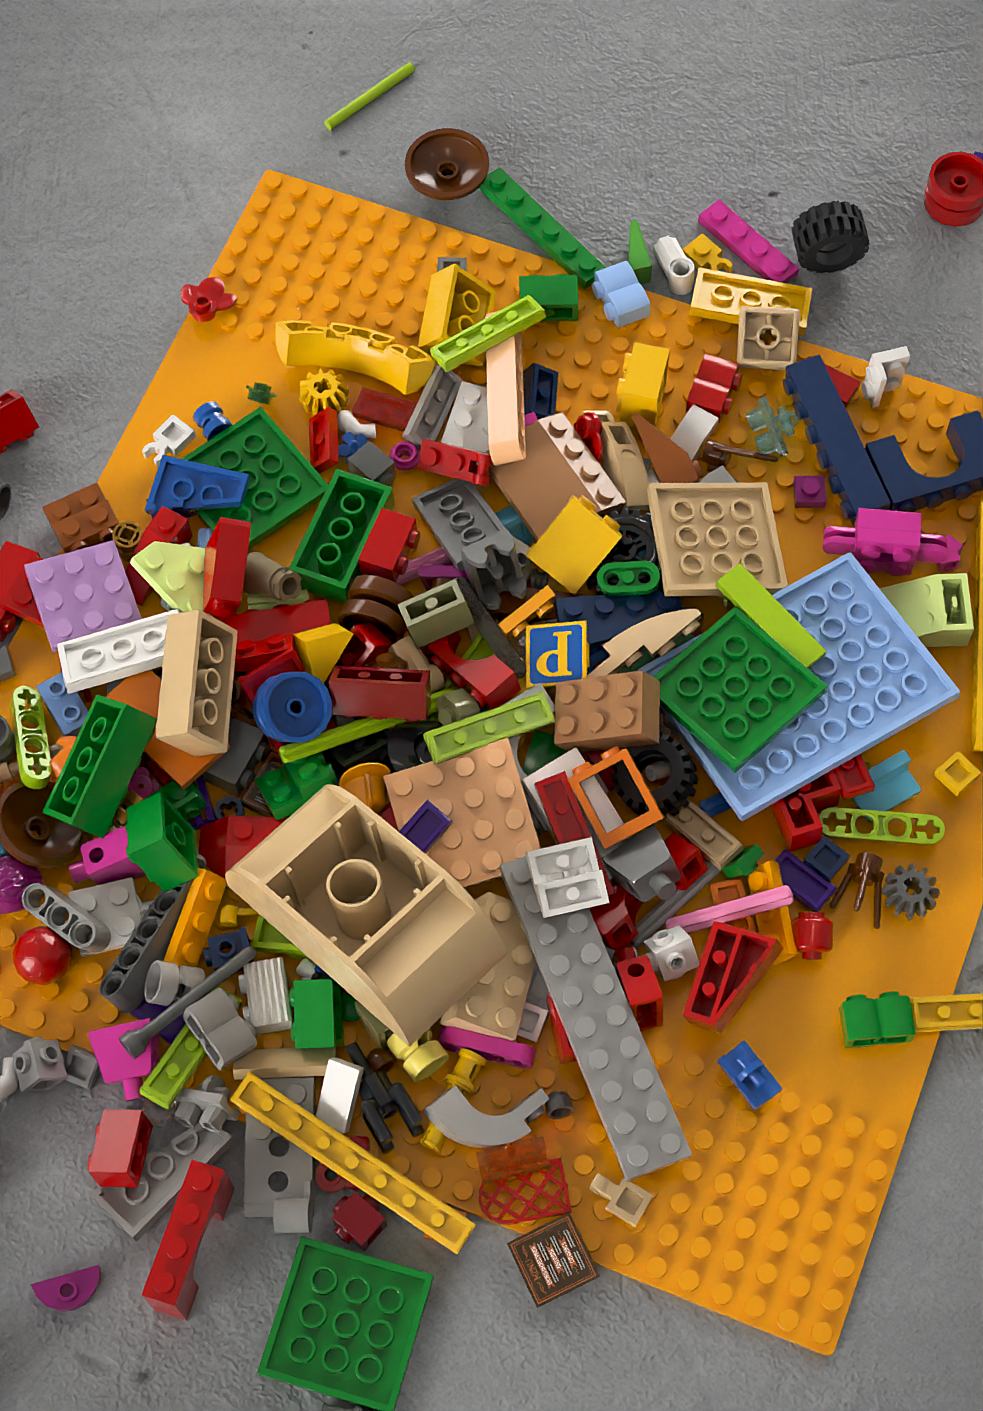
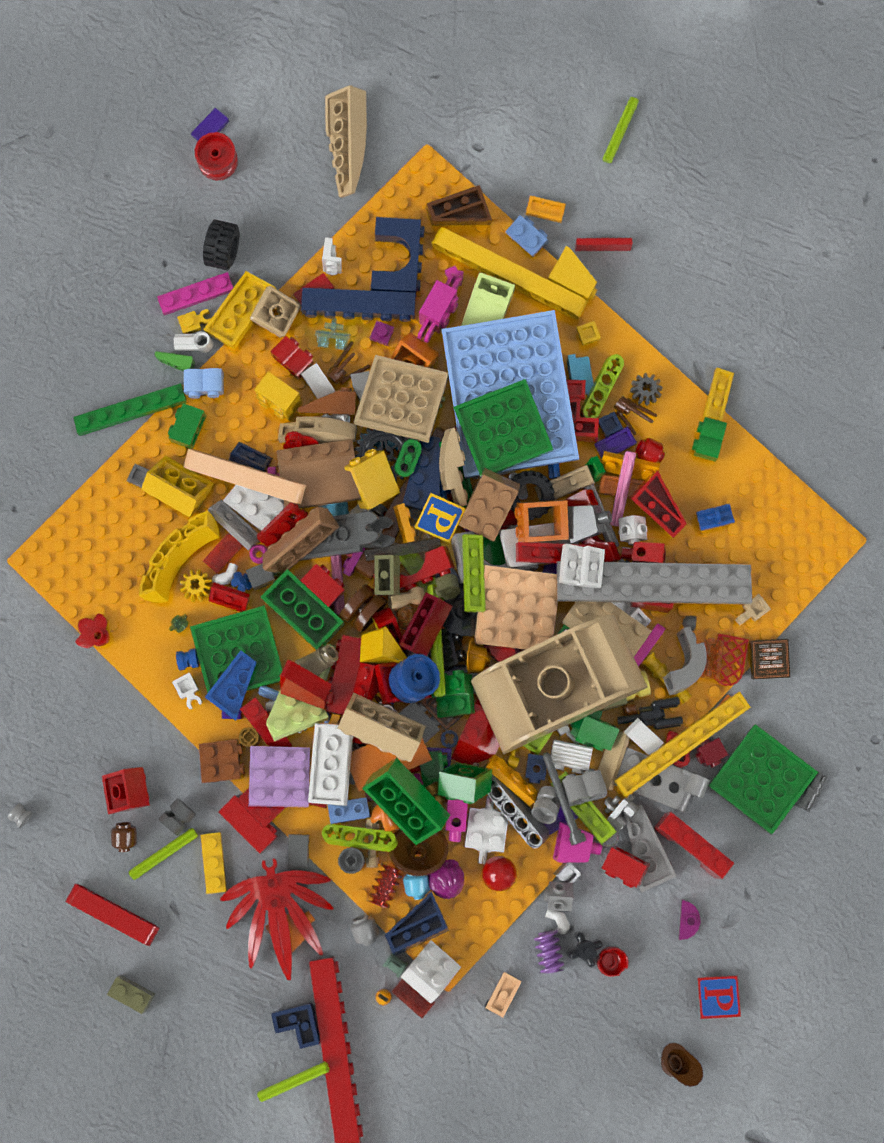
camera: 70 degrees left, 15 degrees up
(53, 914) = (480, 861): light grey beam -> none
(426, 826) = (518, 634): dark purple tile -> none
(440, 488) = (299, 541): none -> medium nougat slope
(442, 154) = (52, 439): reddish brown dish -> none
(487, 333) = (205, 472): lime tile -> none
(769, 615) = (467, 390): lime tile -> none
(800, 539) = (415, 351): none -> orange slope

